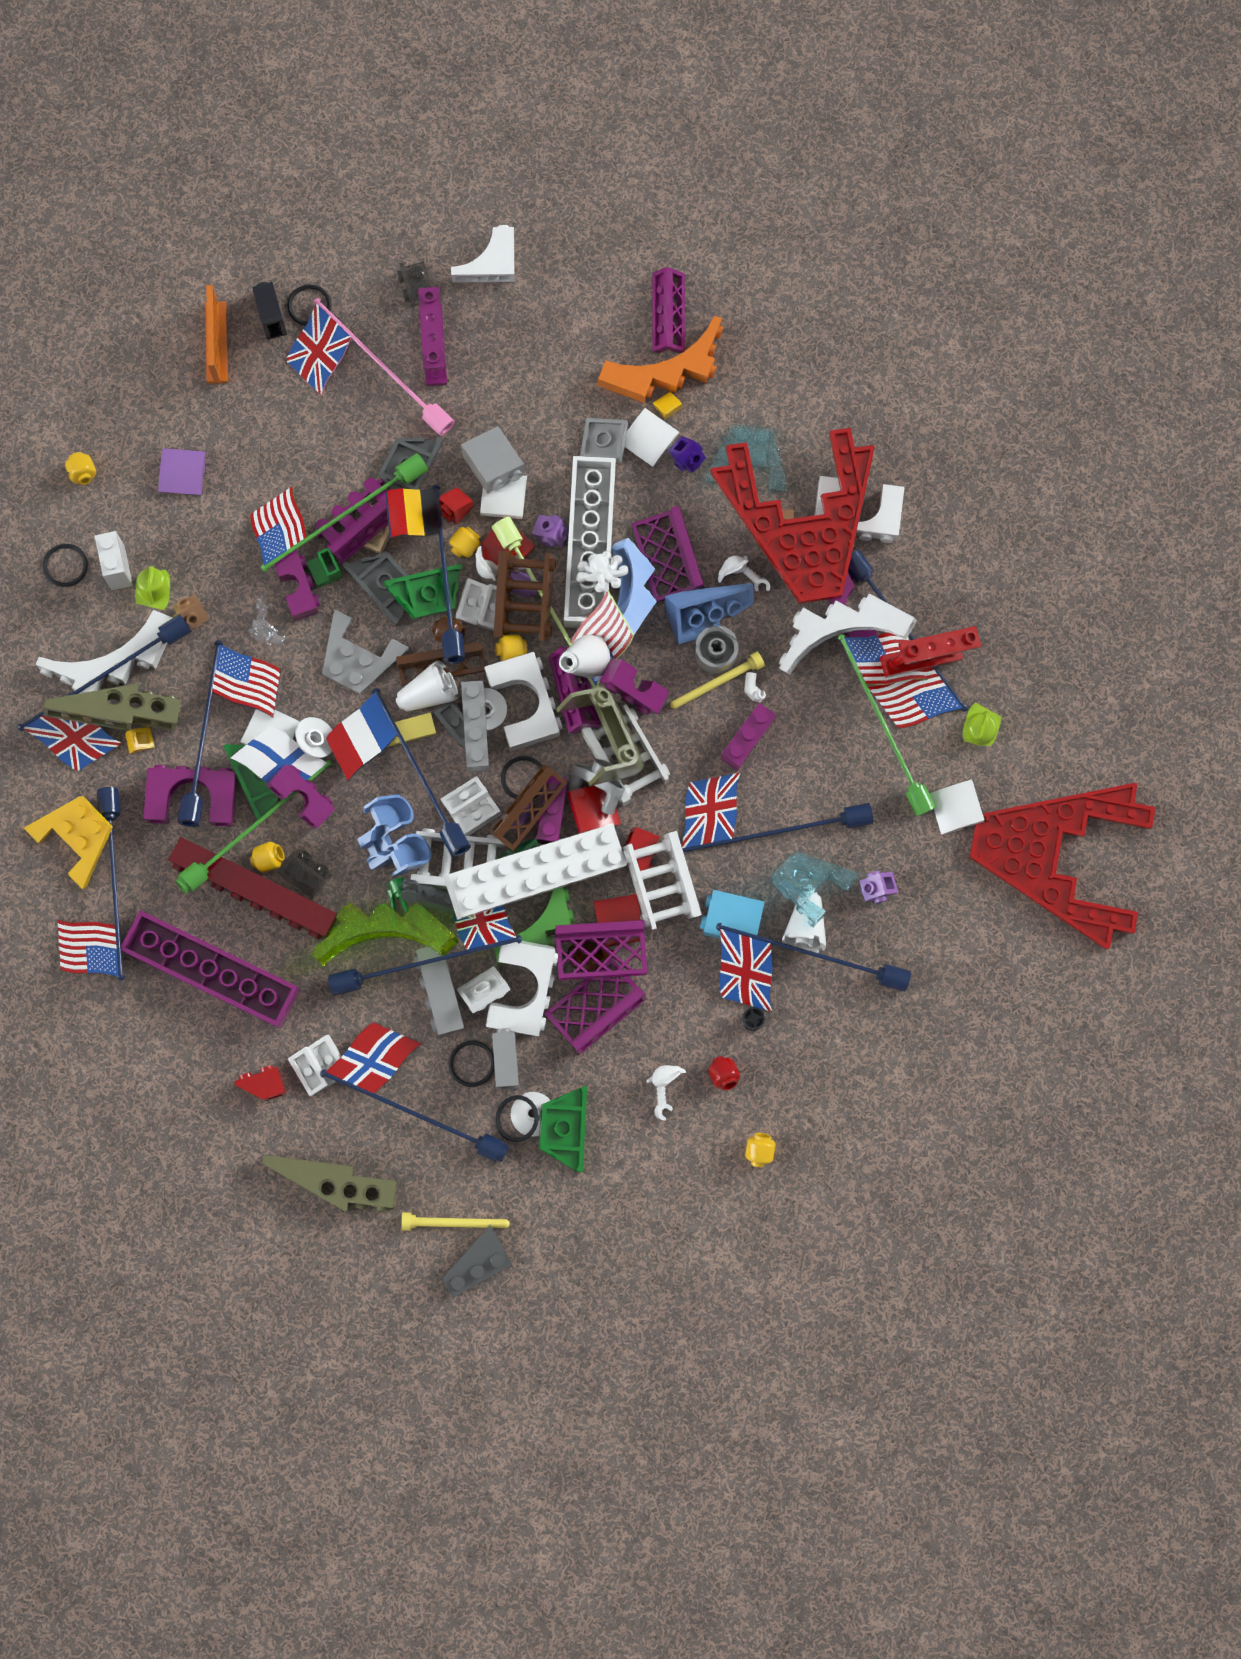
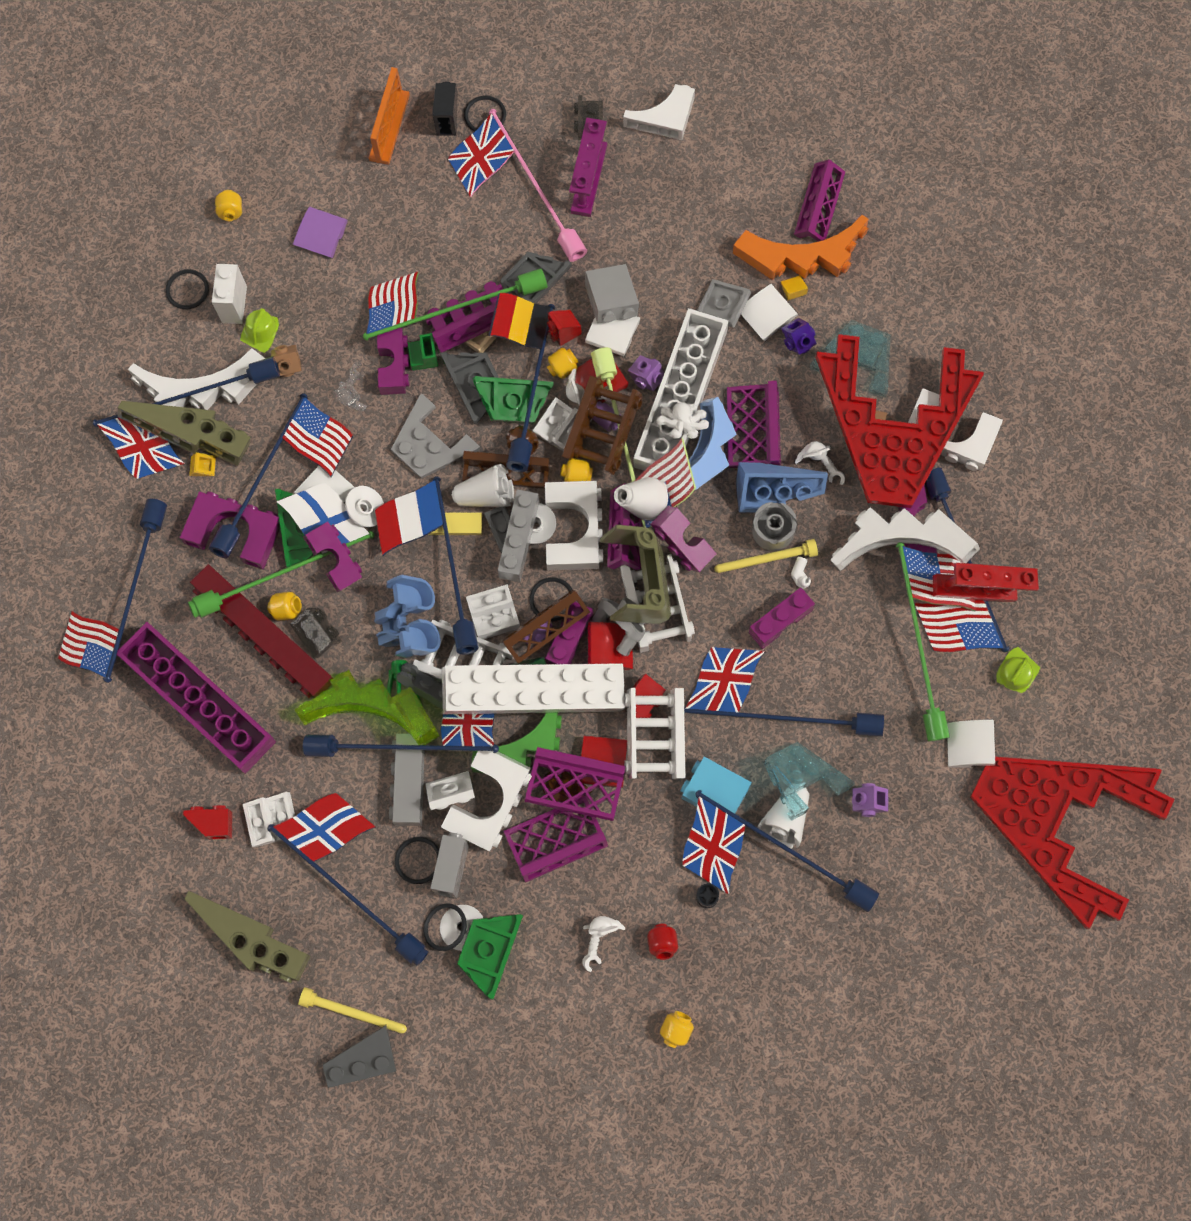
camera: 25 degrees right, 5 degrees down
(81, 829) = (120, 533): yellow wing -> none

